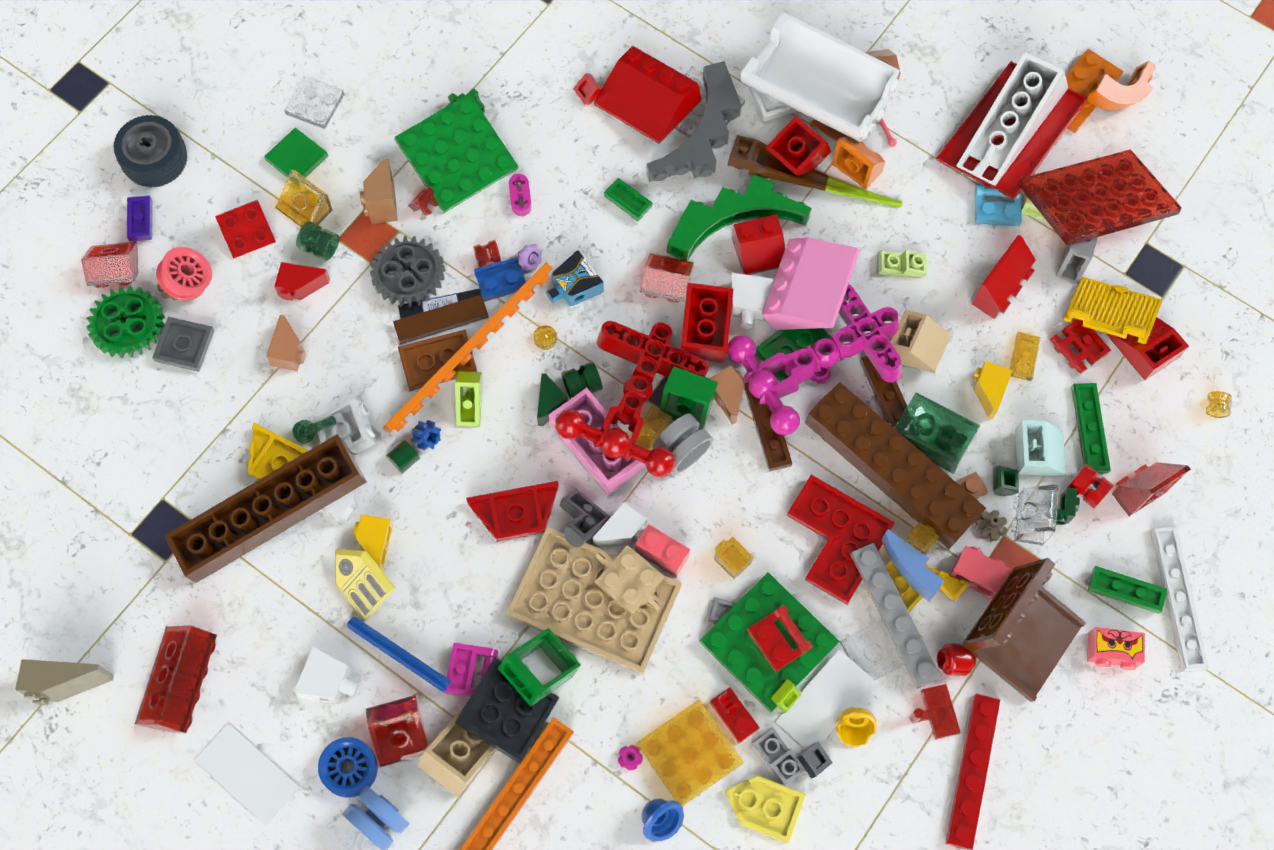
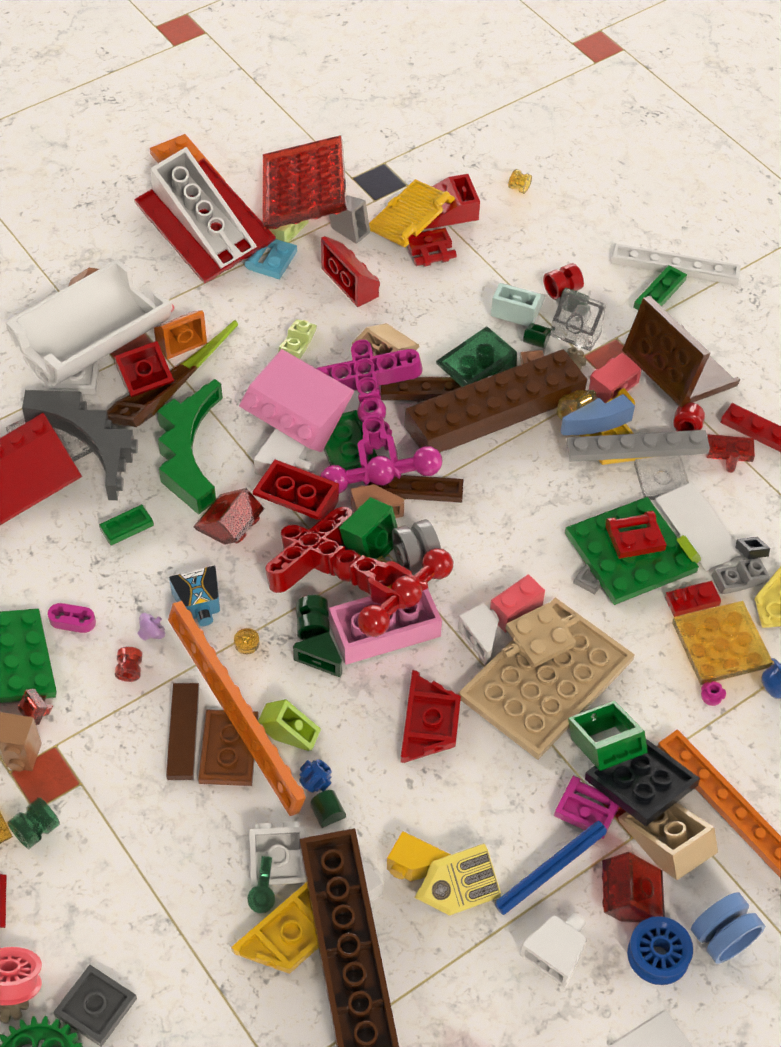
camera: 70 degrees left, 15 degrees down
(285, 347) = (149, 890): nougat slope -> none
(299, 281) = (72, 859): red slope -> none
(406, 311) = (160, 737): sticker -> none
(421, 257) = (124, 761): dark grey gear -> none
(500, 279) = (161, 663): blue plate -> none
(587, 518) = (460, 654): dark grey brick -> none
(732, 557) = (542, 550): clear yellow brick -> none
(759, 244) = (230, 434): red slope -> none
(847, 528) = (546, 456): red plate -> none
(855, 726) = (729, 507): yellow hair -> none
(991, 386) = (447, 315): yellow slope -> none
(1024, 356) = (424, 287): clear yellow plate -> none
(1091, 427) = (506, 267): green tile -> none
(1112, 96) = (207, 136): arch -> none
(1116, 647) = (708, 314): coral brick -> none
(1147, 485) = (581, 237): clear red slope -> none

